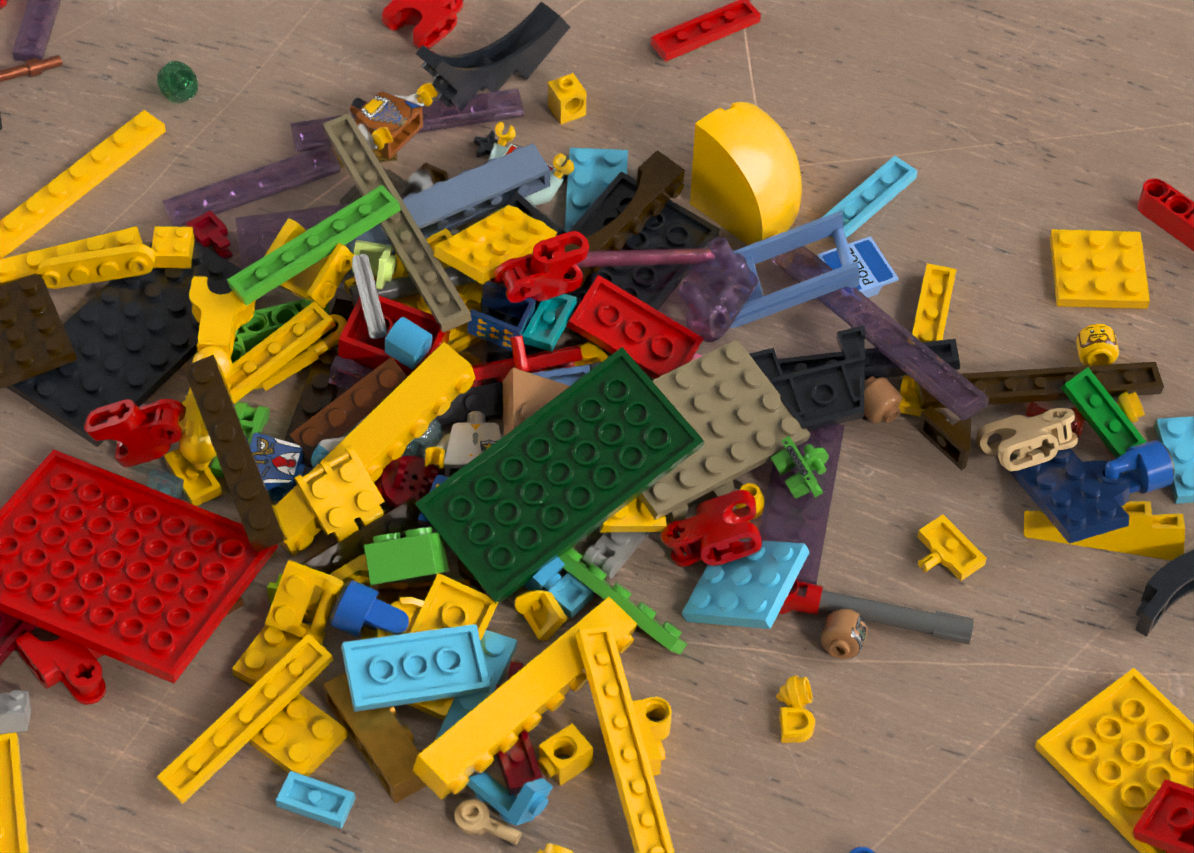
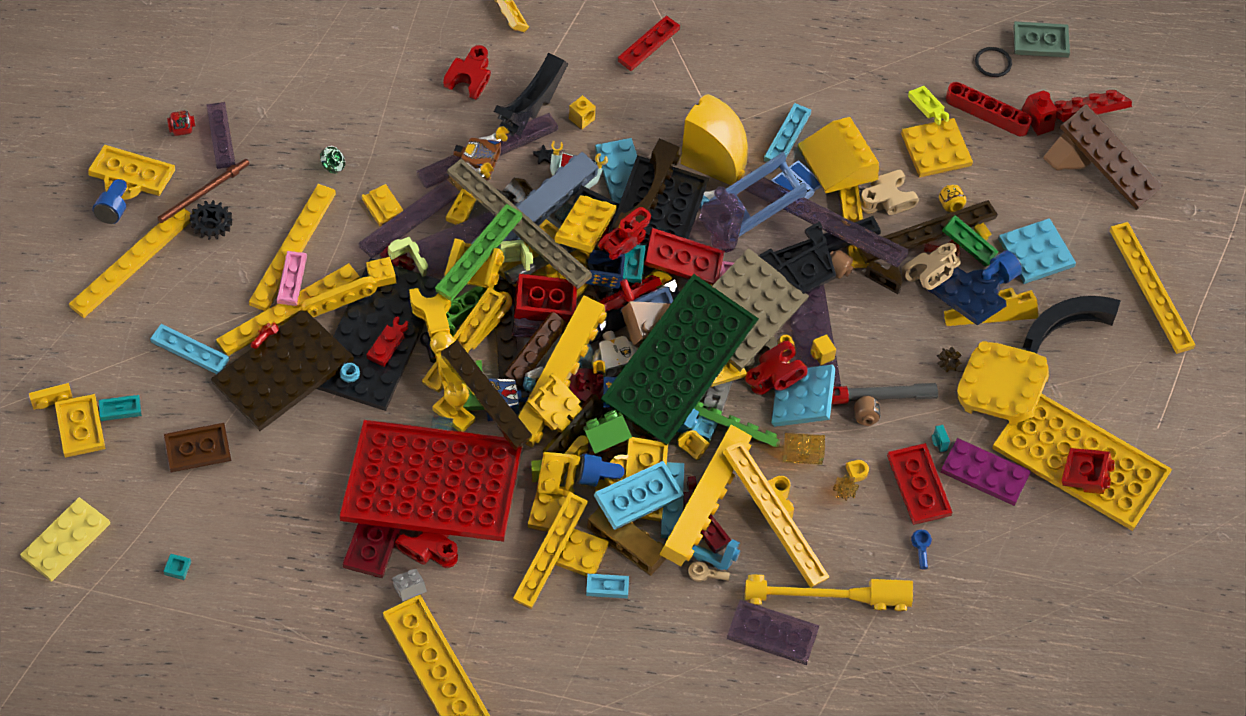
camera: 20 degrees left, 5 degrees up
(41, 225) = (291, 278): none -> bright pink tile
(56, 371) = (349, 367): none -> medium azure plate
(138, 347) = (387, 342): none -> red plate
(141, 431) = (418, 394): red piece -> none
(219, 218) = (400, 247): none -> yellowish green bracket
(223, 157) = (382, 204): none -> yellow plate
(330, 189) = (461, 208): none -> yellow plate
(369, 296) = (526, 278): light grey axle -> none
(407, 342) = (560, 301): dark azure piece -> none
(568, 742) = (740, 515): yellow brick -> none
(646, 257) = (679, 207): clear pink piece -> none
(716, 666) = (803, 448): none -> clear yellow brick
(764, 754) = (849, 491): none -> clear yellow gear
(795, 692) = (851, 452): yellow plate -> none
(802, 520) = (823, 350): none -> yellow plate
(804, 480) = (815, 324): bright green hips -> none
(890, 773) = (919, 484): none -> red plate
(936, 244) = (839, 156): none -> yellow slope
(949, 548) = (908, 344): yellow plate -> none
(950, 708) = (940, 438): none -> teal plate
(992, 318) = (886, 195): none -> tan piece
(1009, 597) = (950, 364): none -> dark brown gear
(1011, 783) = (985, 471): none -> magenta plate
(1085, 644) = (1003, 382): none -> yellow plate
(1105, 203) = (928, 104): none -> neon yellow plate

